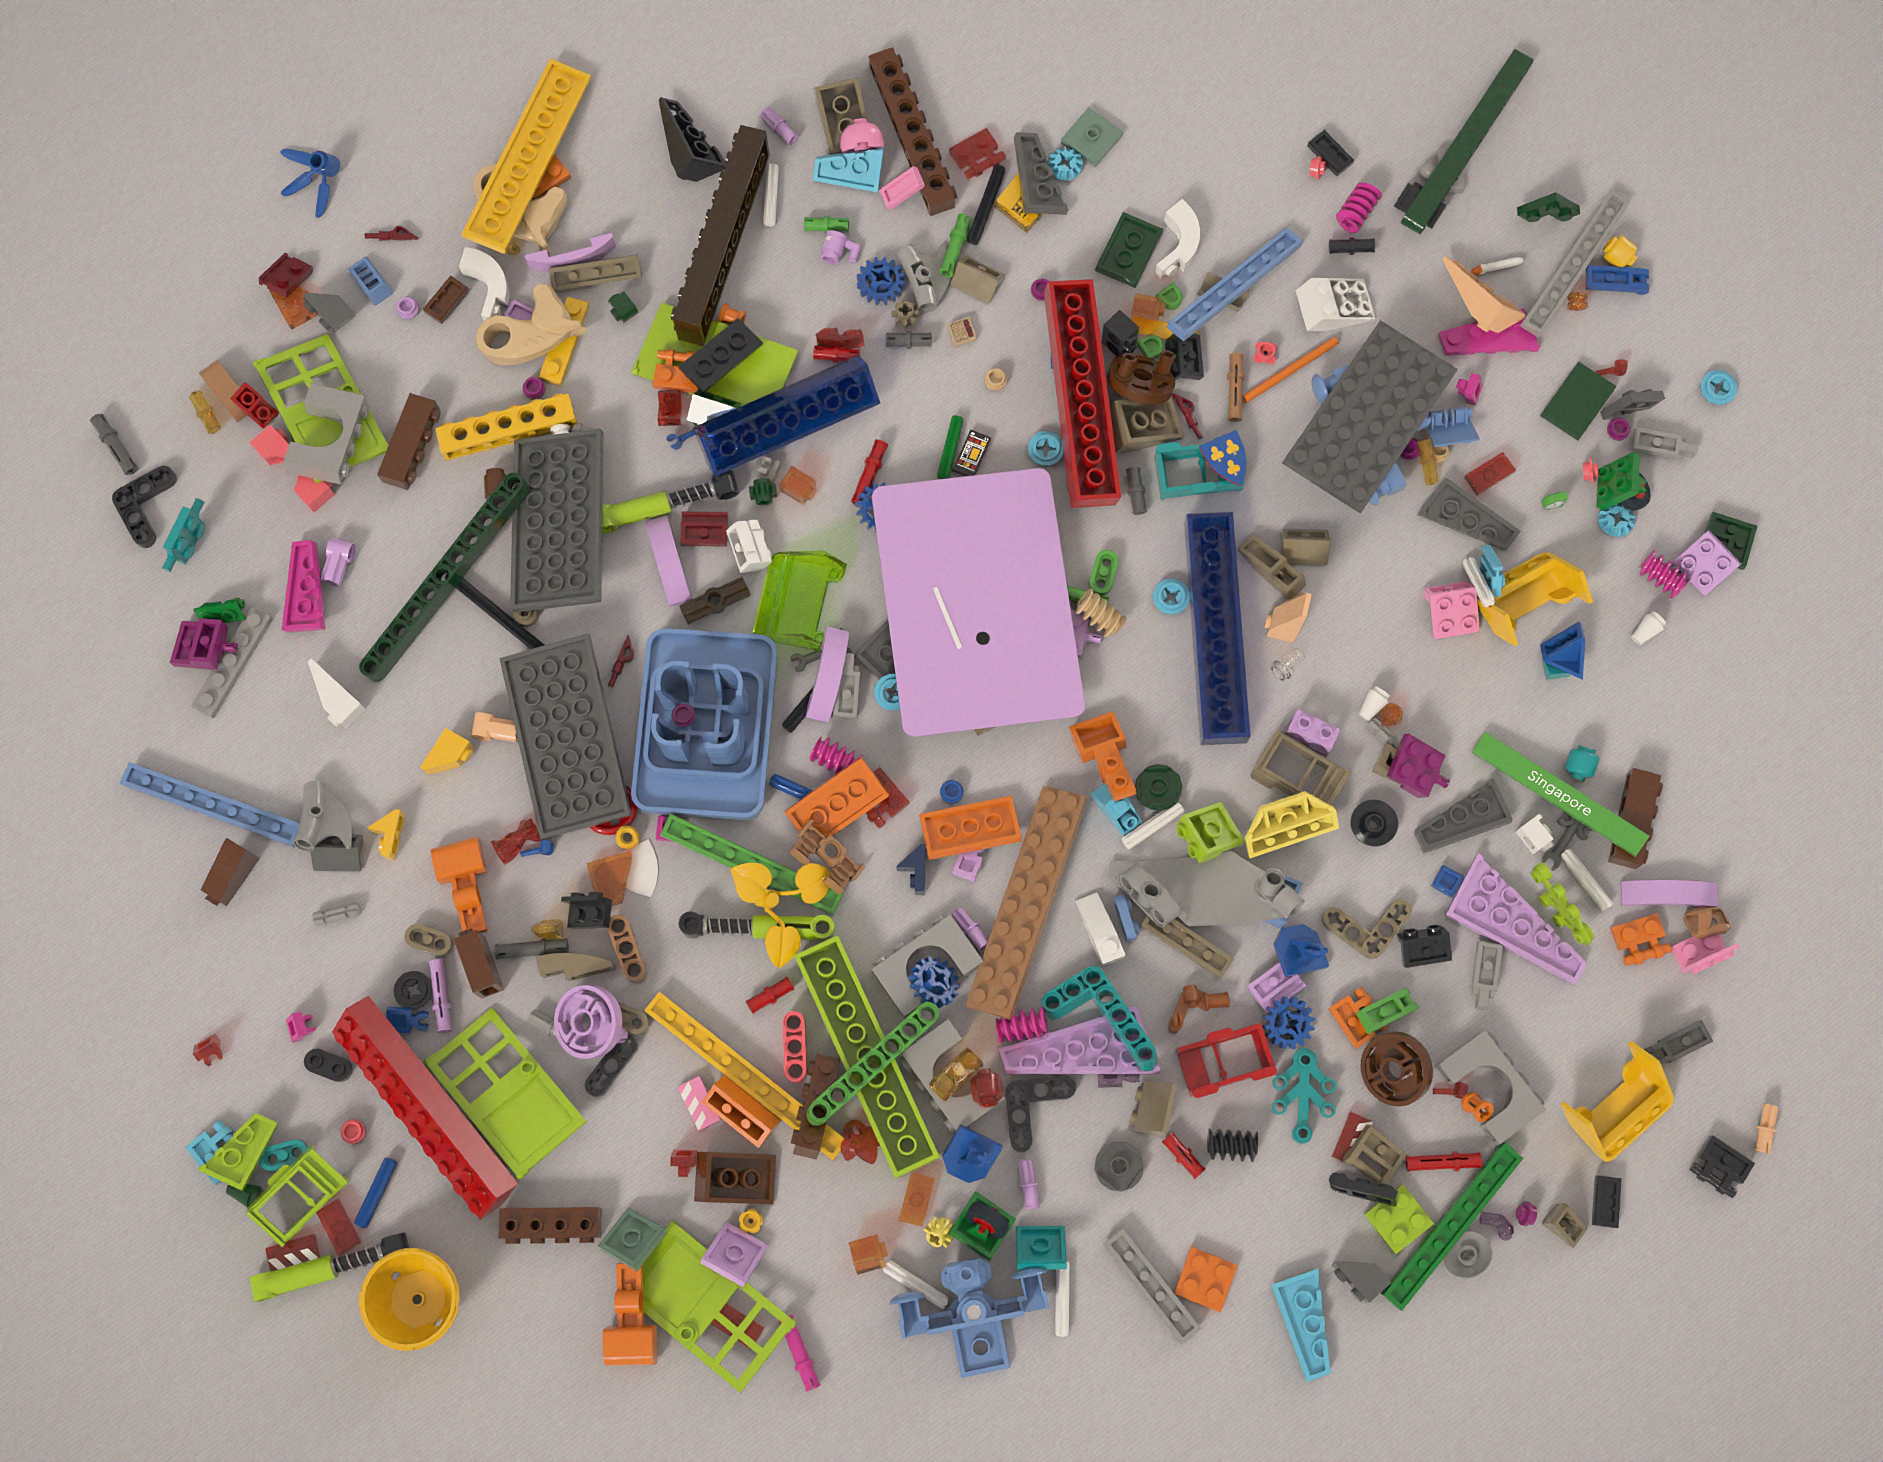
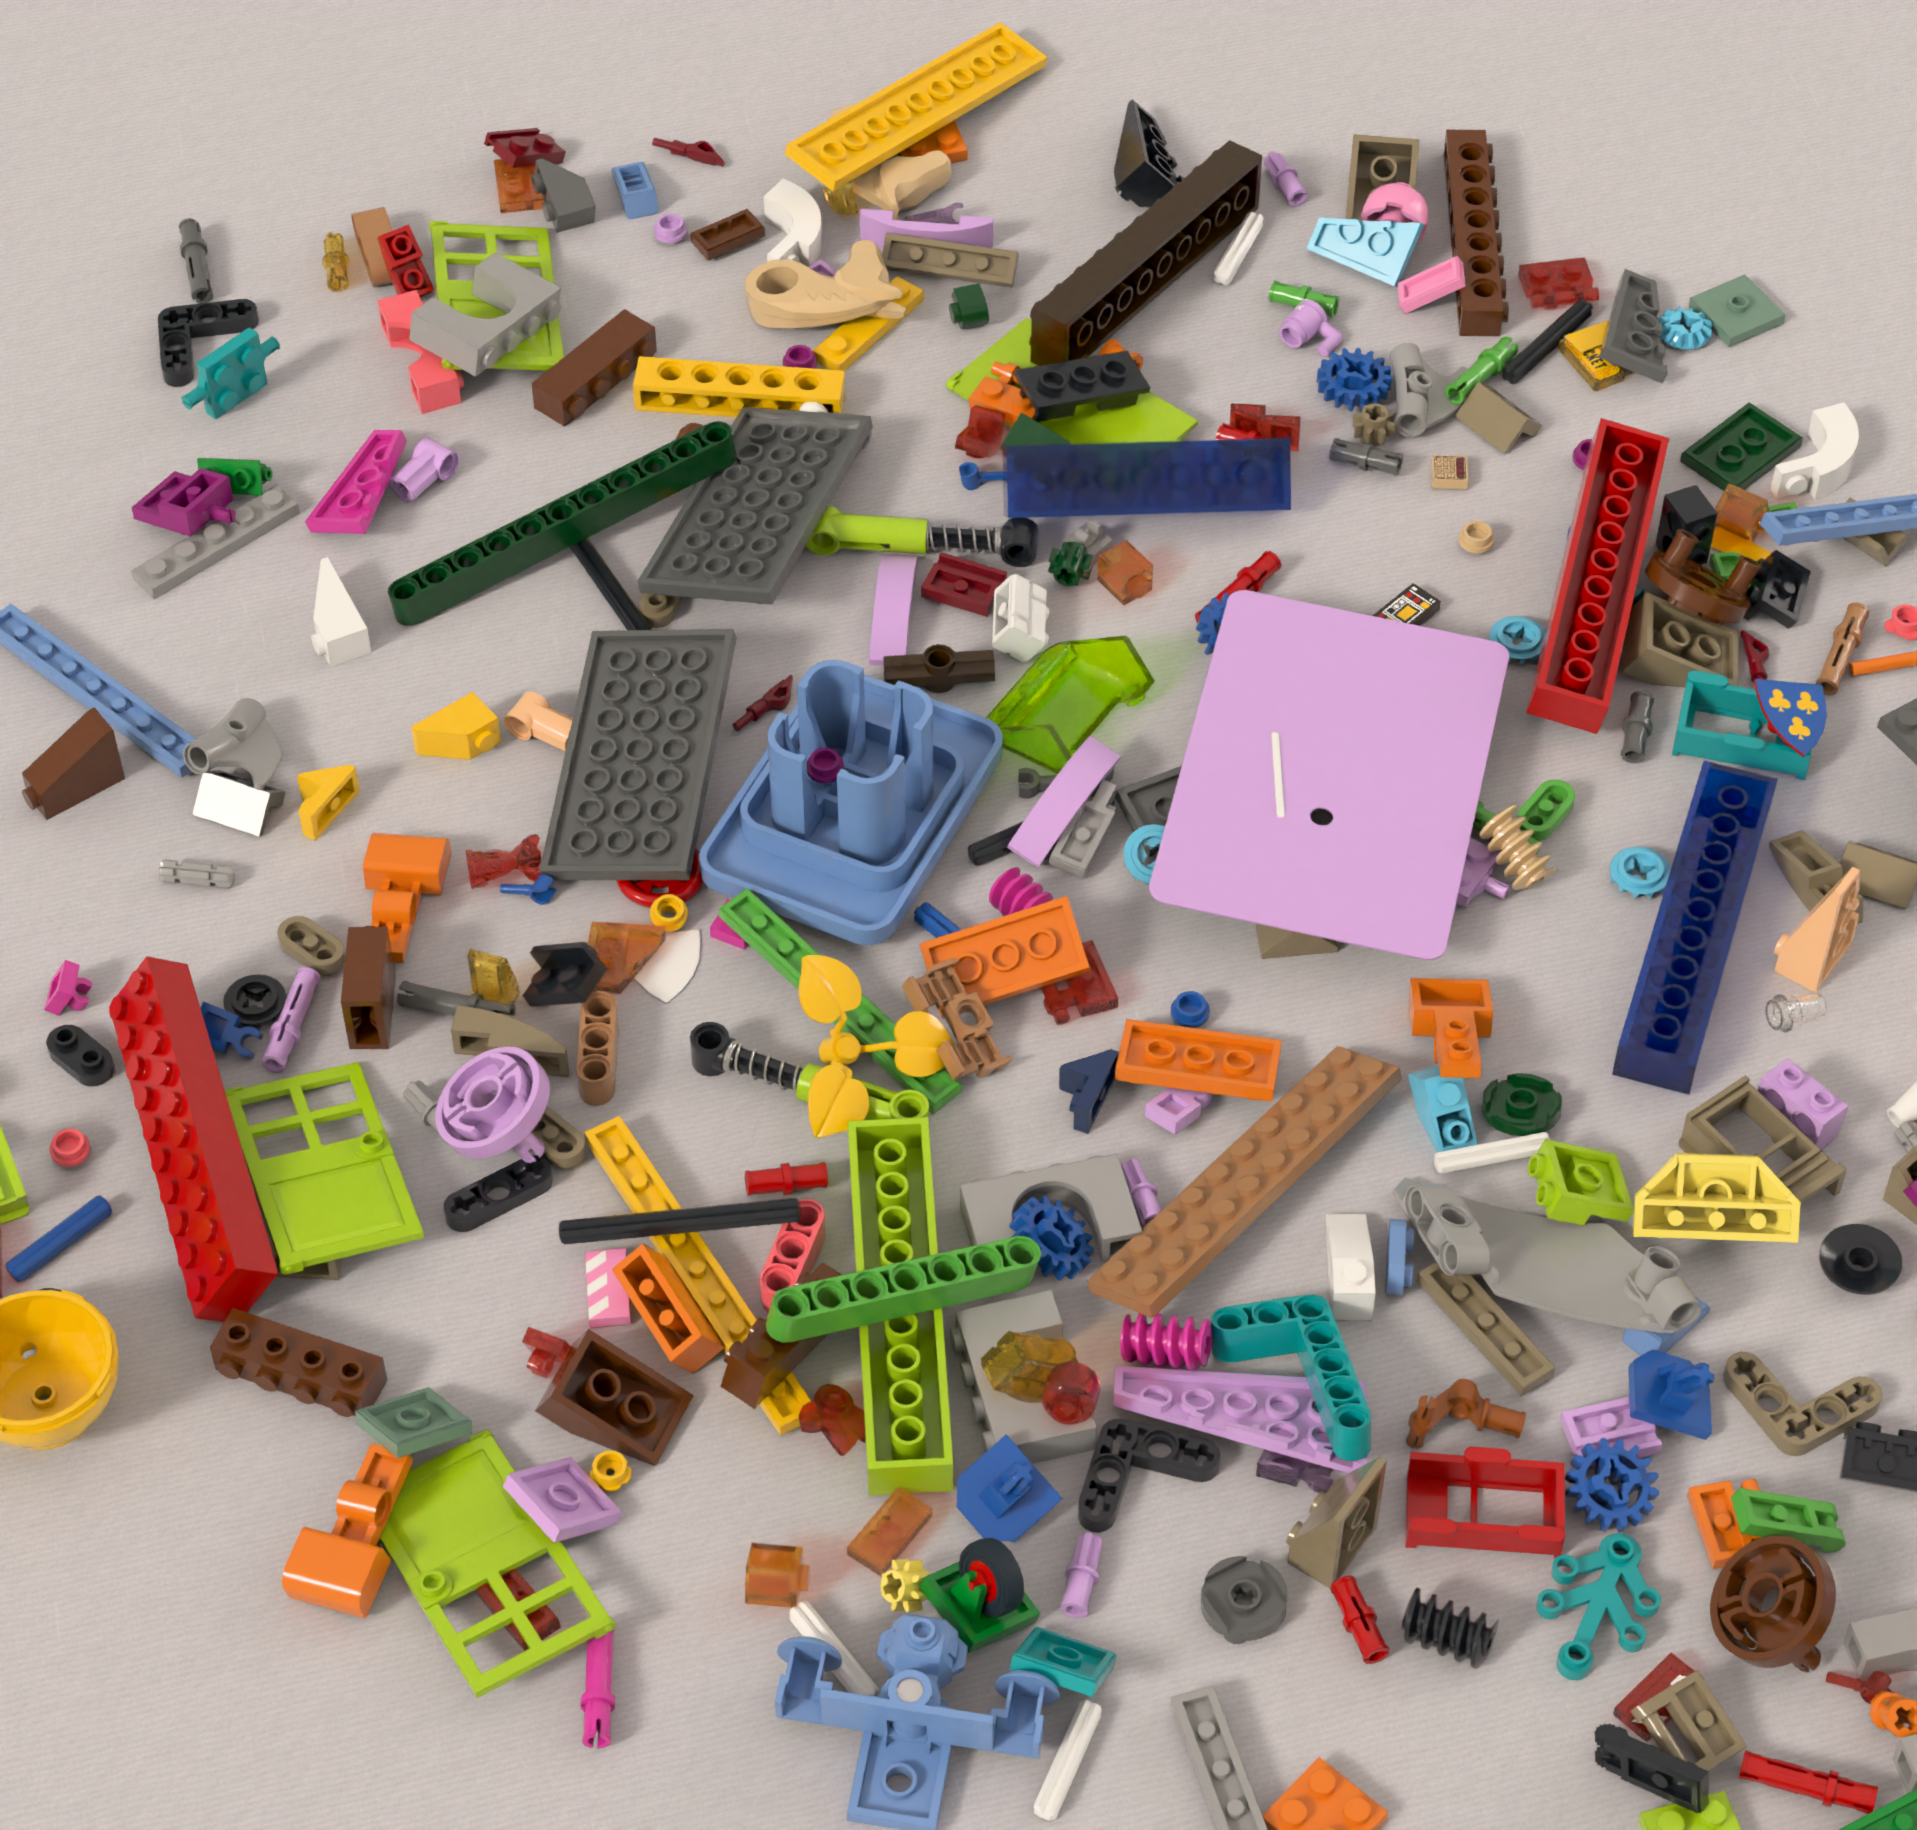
camera: 20 degrees right, 25 degrees down
(320, 163) = (631, 42): blue plant -> none
(572, 239) = (937, 216): none -> clear purple plate
(724, 1053) = (680, 1221): none -> black axle
(950, 447) = (1380, 588): green axle -> none

